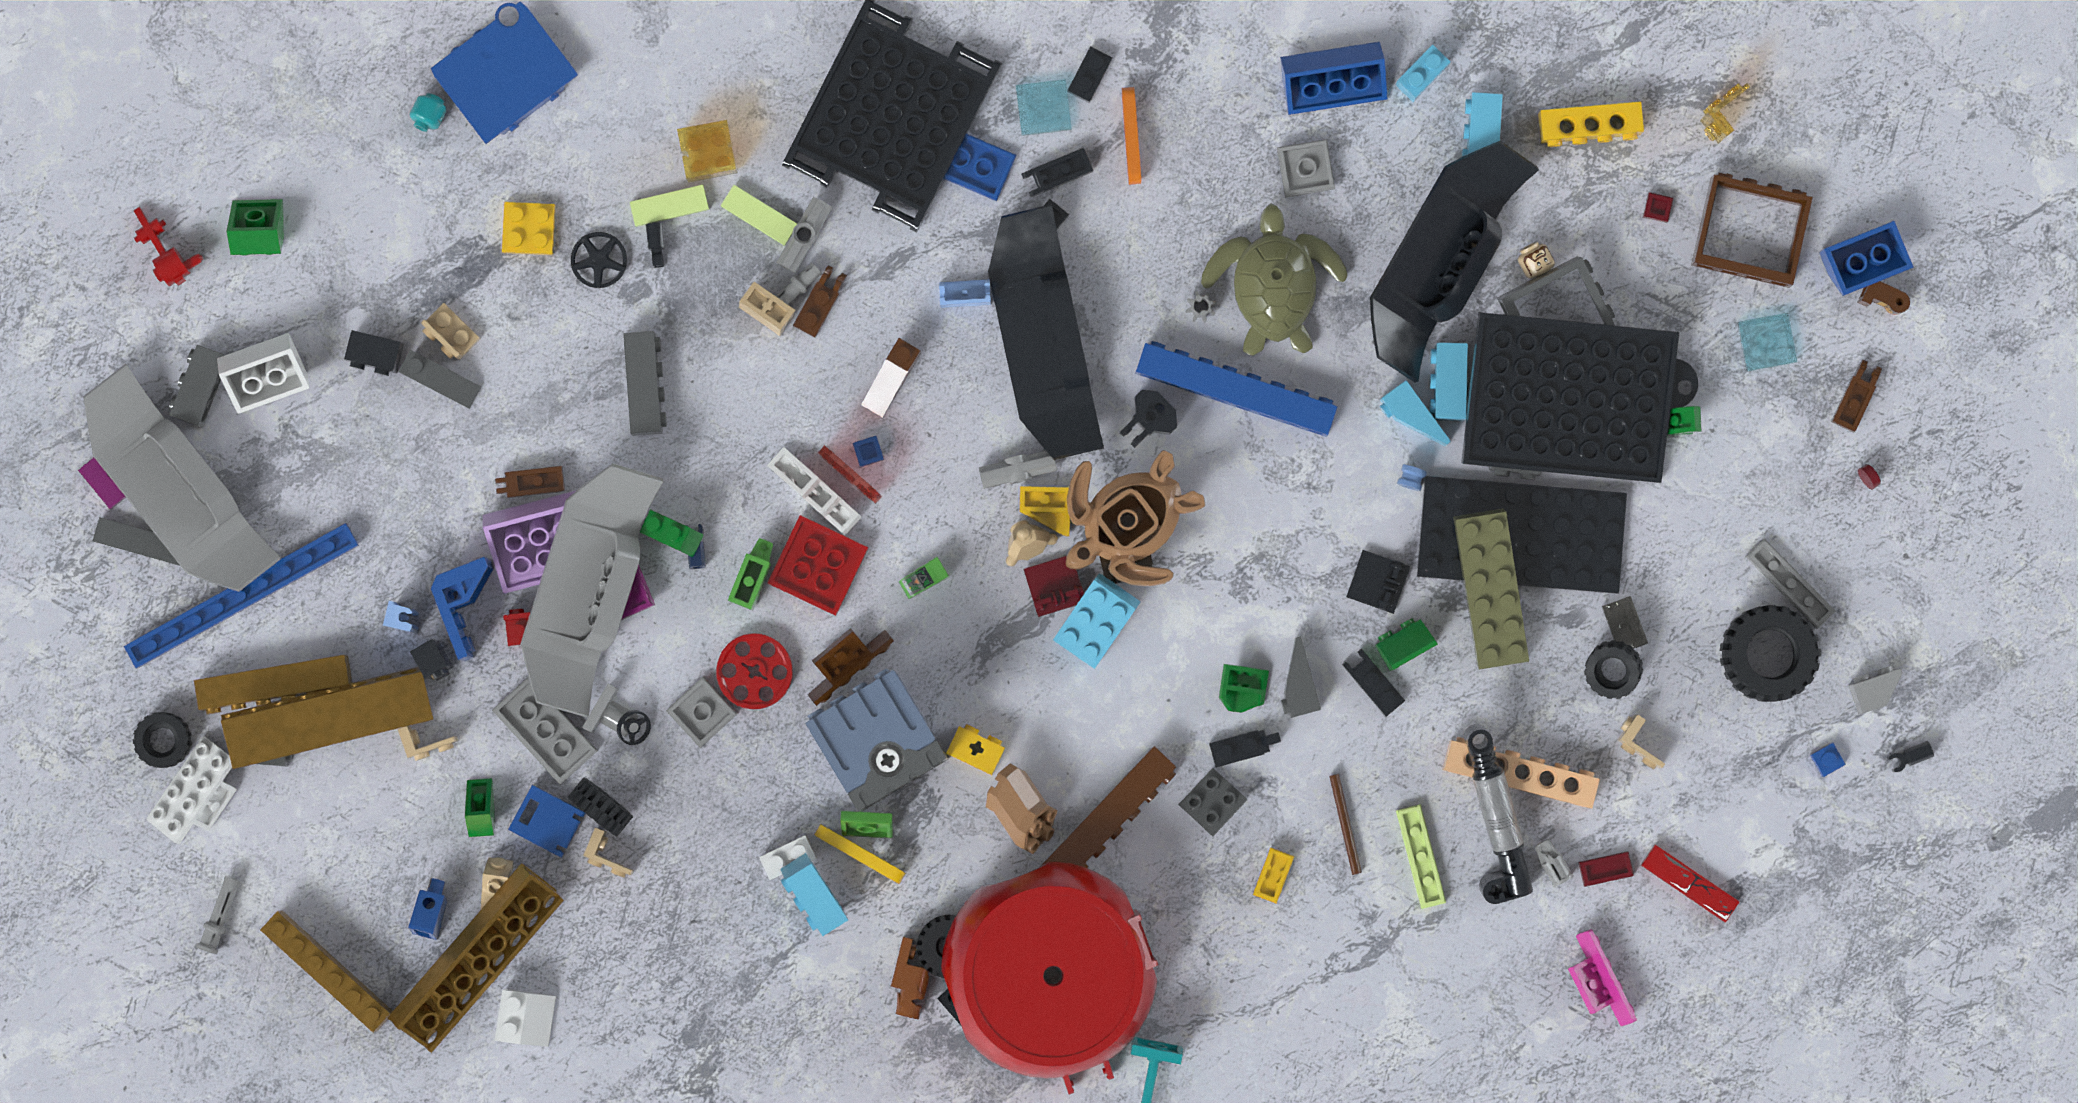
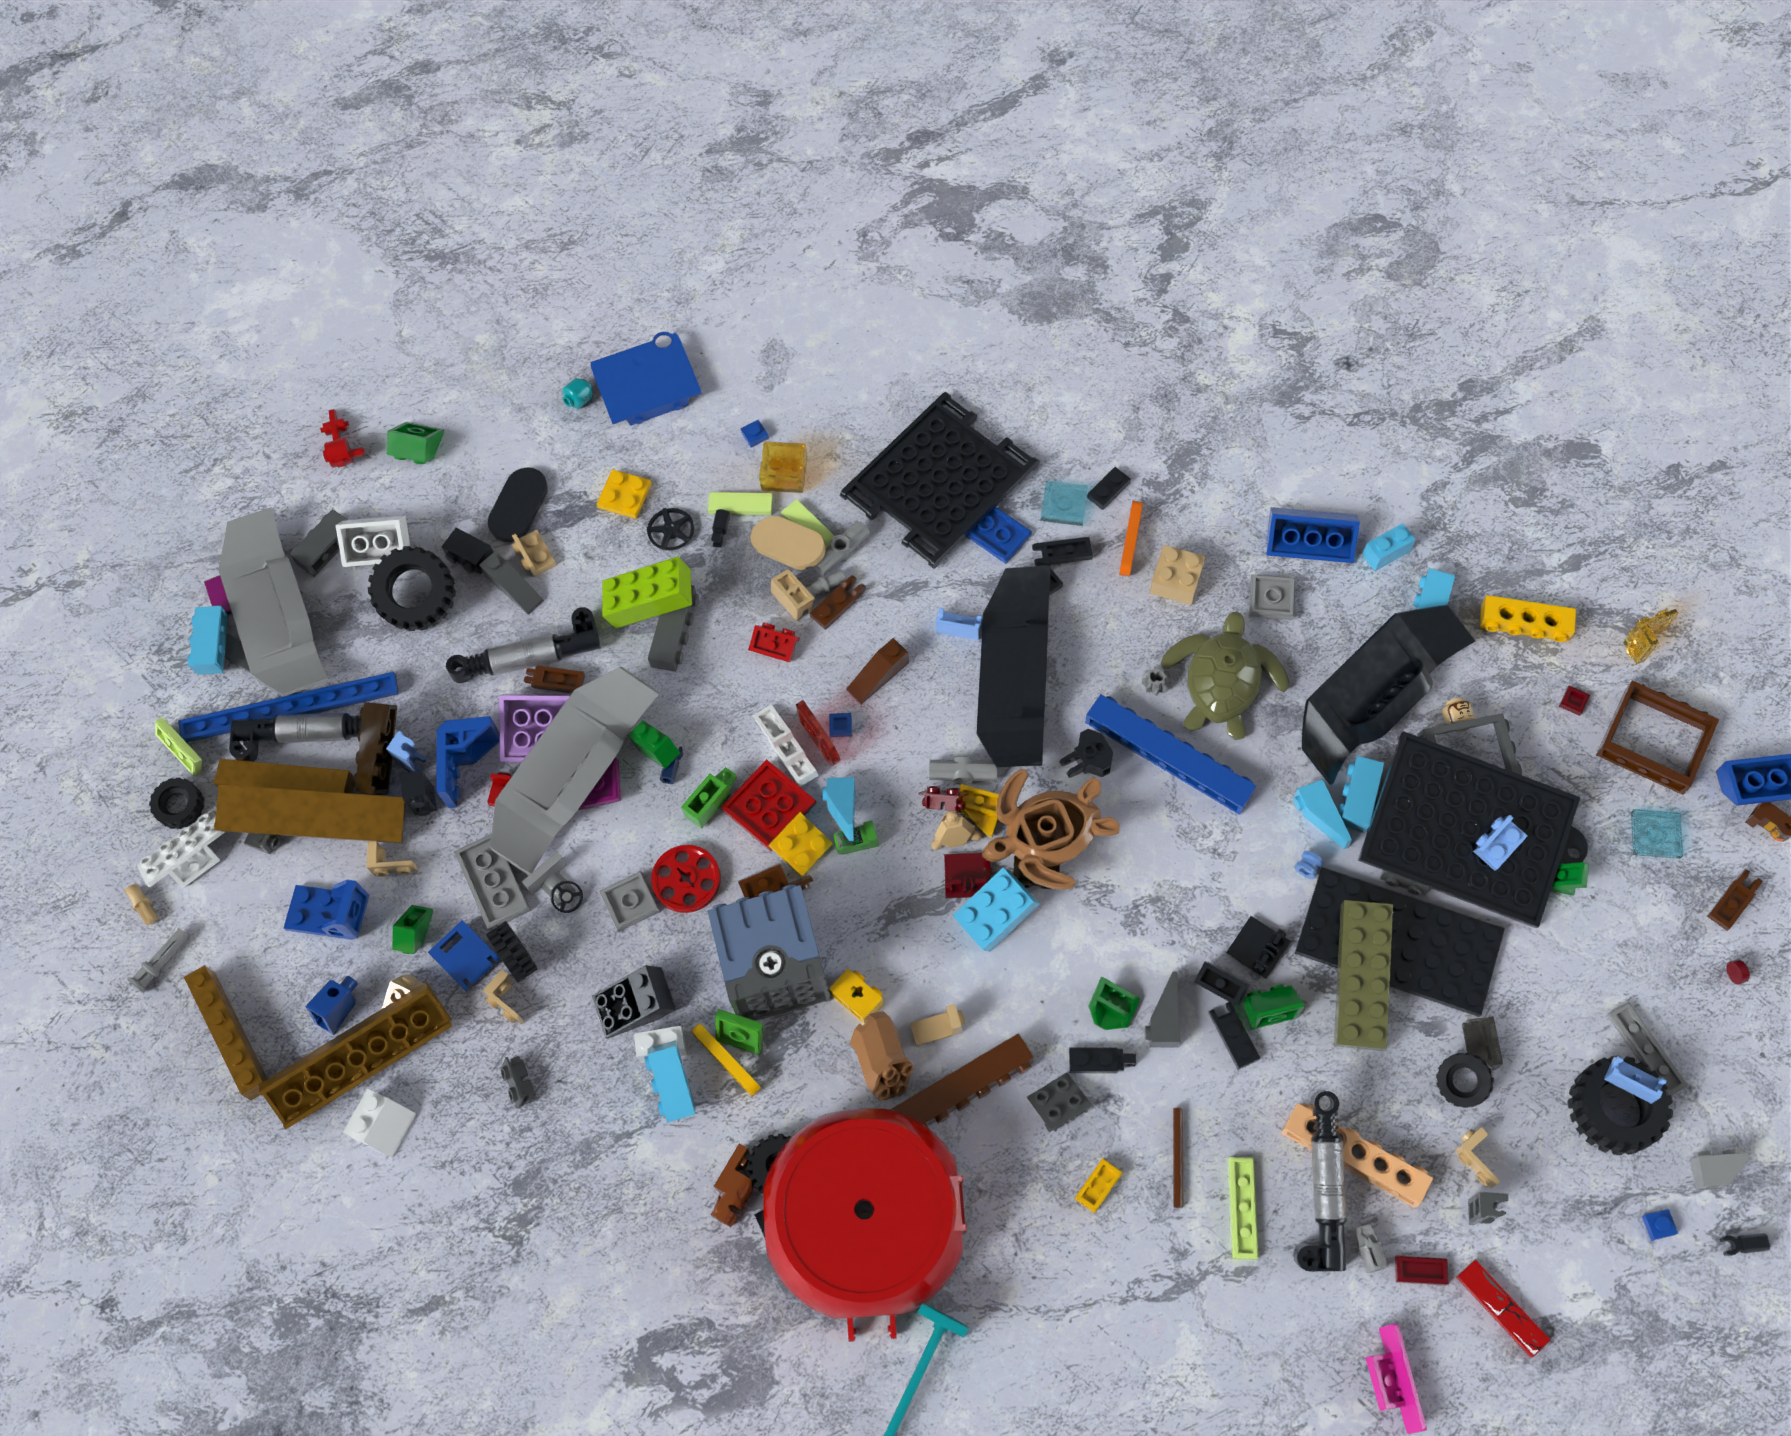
camera: 20 degrees right, 20 degrees down
(118, 544) = (208, 640): none -> medium azure brick
(136, 676) = (178, 746): none -> yellowish green tile
(172, 861) = (141, 904): none -> tan axle
(271, 618) = (290, 729): none -> piece
(332, 456) = (391, 568): none -> black tyre
(365, 624) = (373, 758): none -> dark brown wedge
(379, 813) = (328, 911): none -> blue bracket
(408, 274) = (517, 504): none -> black tile
(495, 457) = (529, 652): none -> piece
(604, 356) = (646, 592): none -> lime brick
(644, 929) = (518, 1090): none -> dark grey hinge
(656, 108) = (754, 433): none -> blue plate
(742, 246) = (788, 542): none -> tan tile
(743, 820) = (634, 1001): none -> black slope
(763, 371) = (772, 642): none -> red bracket
(866, 601) = (800, 844): none -> yellow plate
(897, 545) = (841, 803): none -> medium azure slope
(996, 507) = (935, 797): none -> dark red hinge
(1068, 759) = (938, 1026): none -> tan bracket
(1194, 170) = (1177, 574): none -> tan brick
(1349, 635) = (1222, 983): none -> black brick
(1604, 406) = (1499, 842): none -> light blue bracket
(1652, 794) = (1484, 1205): none -> dark grey hinge
(1777, 630) = (1634, 1080): none -> light blue hinge

